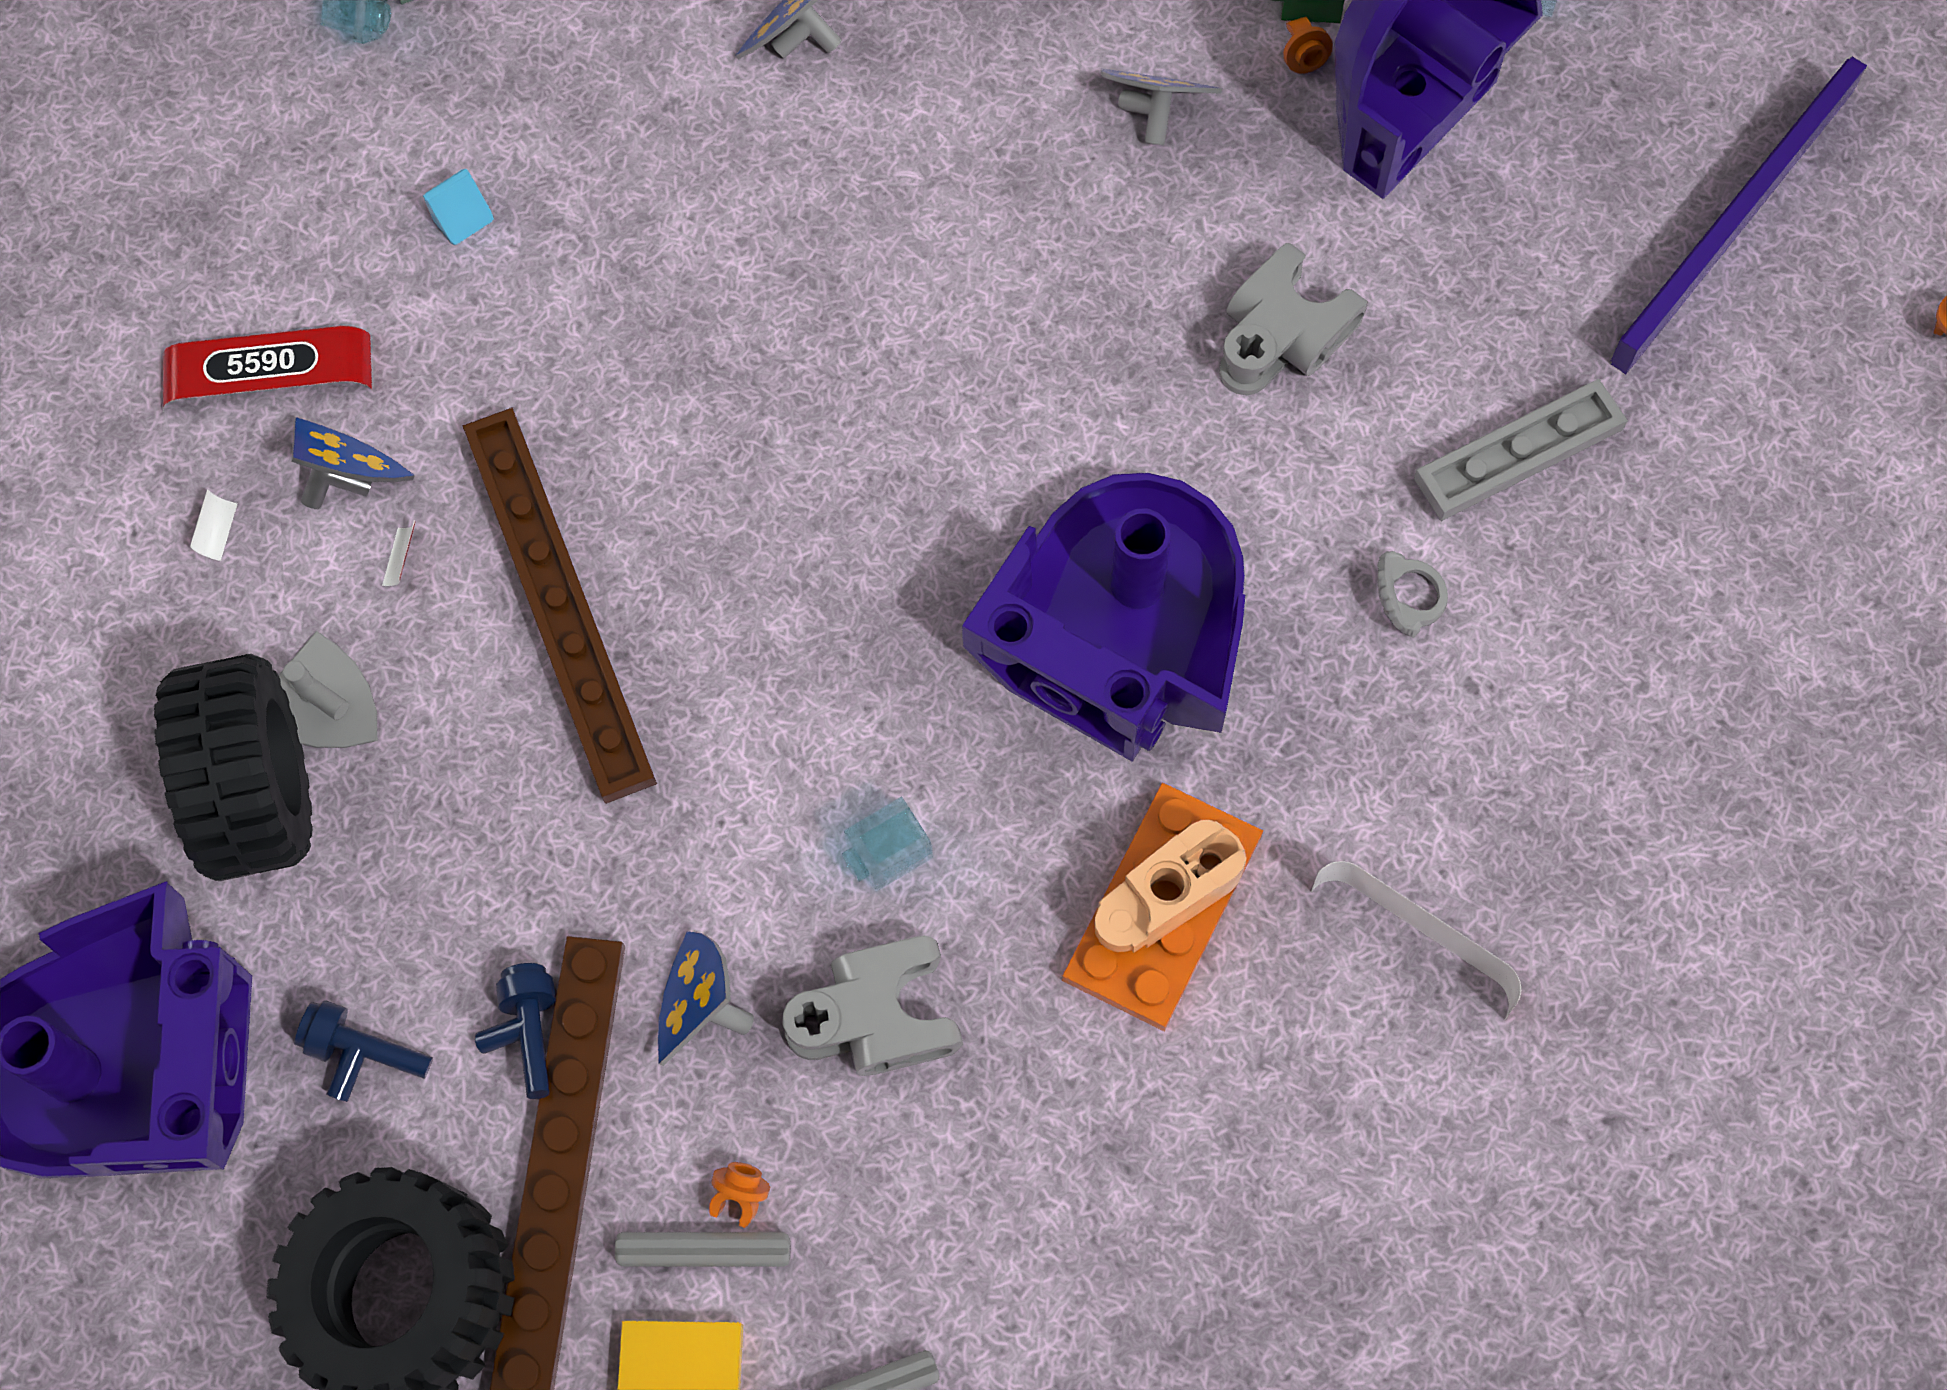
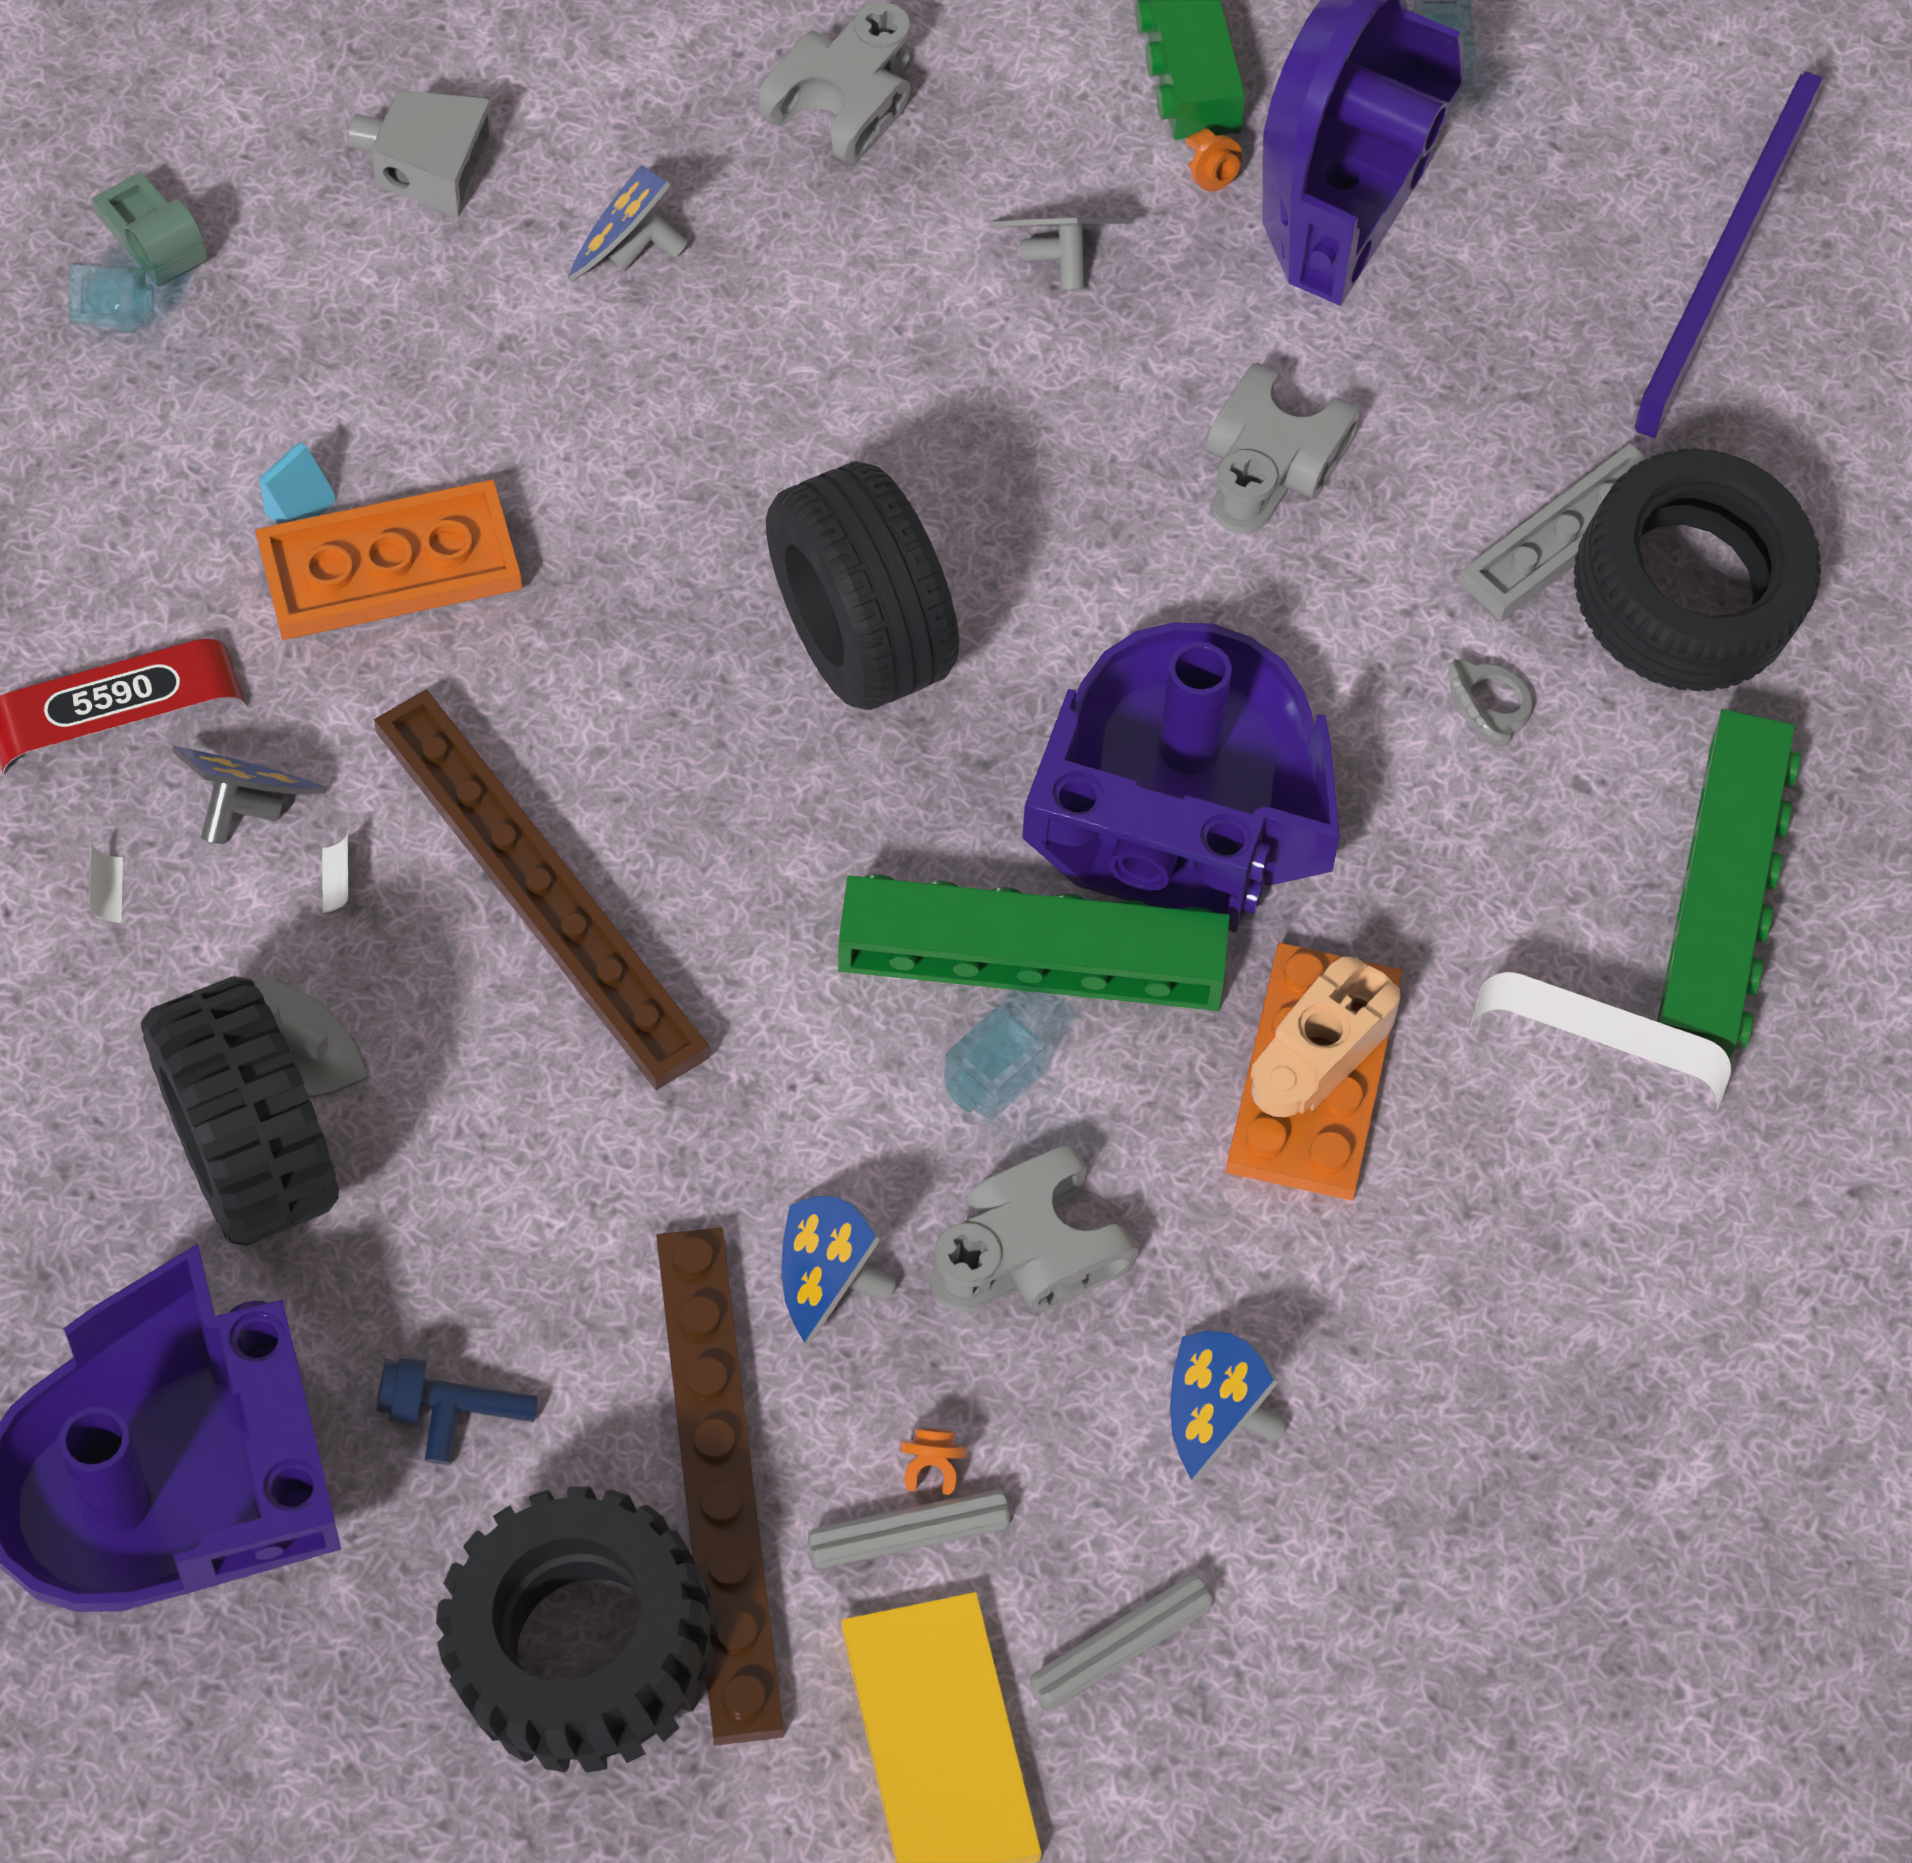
camera: 20 degrees left, 10 degrees down
(516, 283) = (388, 559): none -> orange plate
(523, 992) = (626, 1306): dark blue piece -> none
(882, 393) = (862, 585): none -> black tyre
(952, 738) = (1033, 942): none -> green brick
(991, 1197) = (1215, 1394): none -> blue shield
(1568, 813) = (1727, 878): none -> green brick
(1677, 465) = (1737, 506): none -> black tyre

